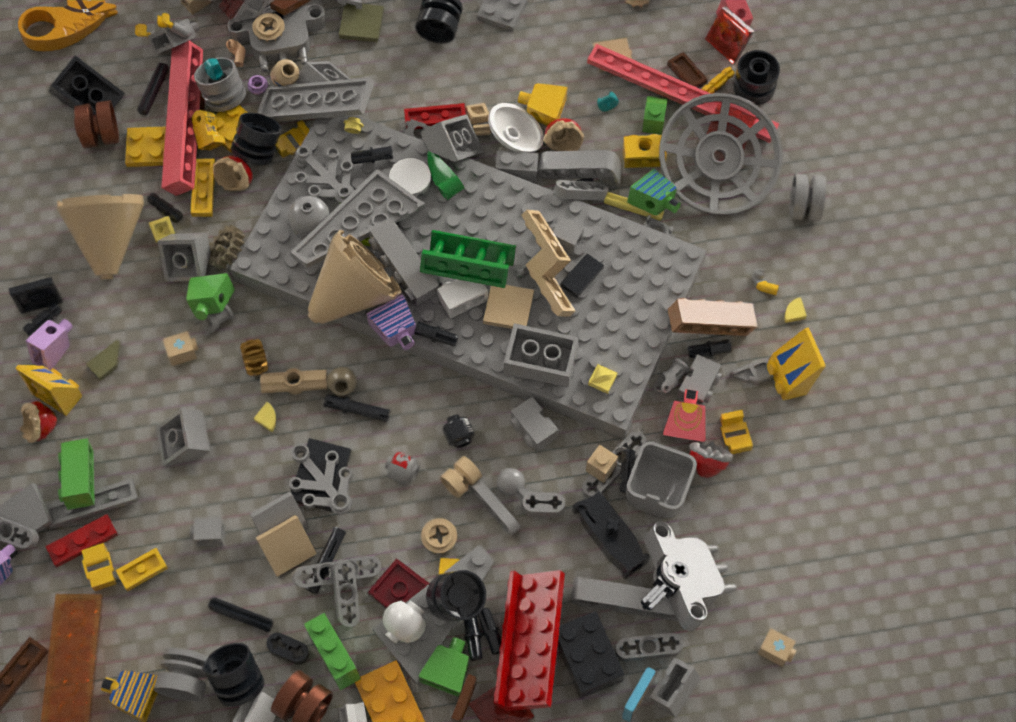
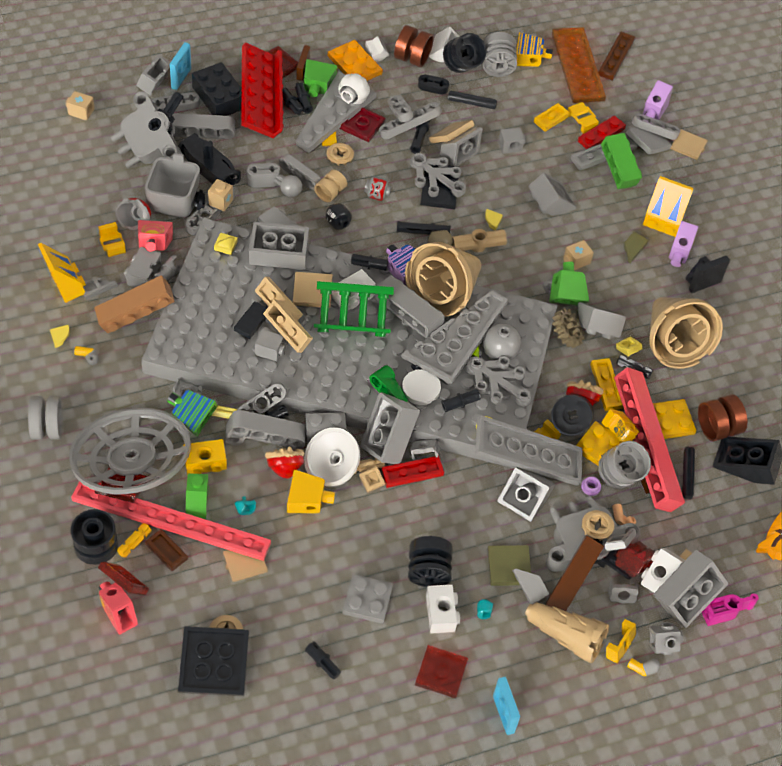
camera: 165 degrees right, 10 degrees down
(171, 35) = (690, 512): light grey torso -> none
(213, 69) = (633, 465): teal piece -> none
(254, 357) = (516, 248): pearl gold gear -> none
(284, 73) = (567, 487): tan head -> none
(332, 651) = (401, 75): bright green brick -> none
(456, 595) = (319, 100): black wheel -> none

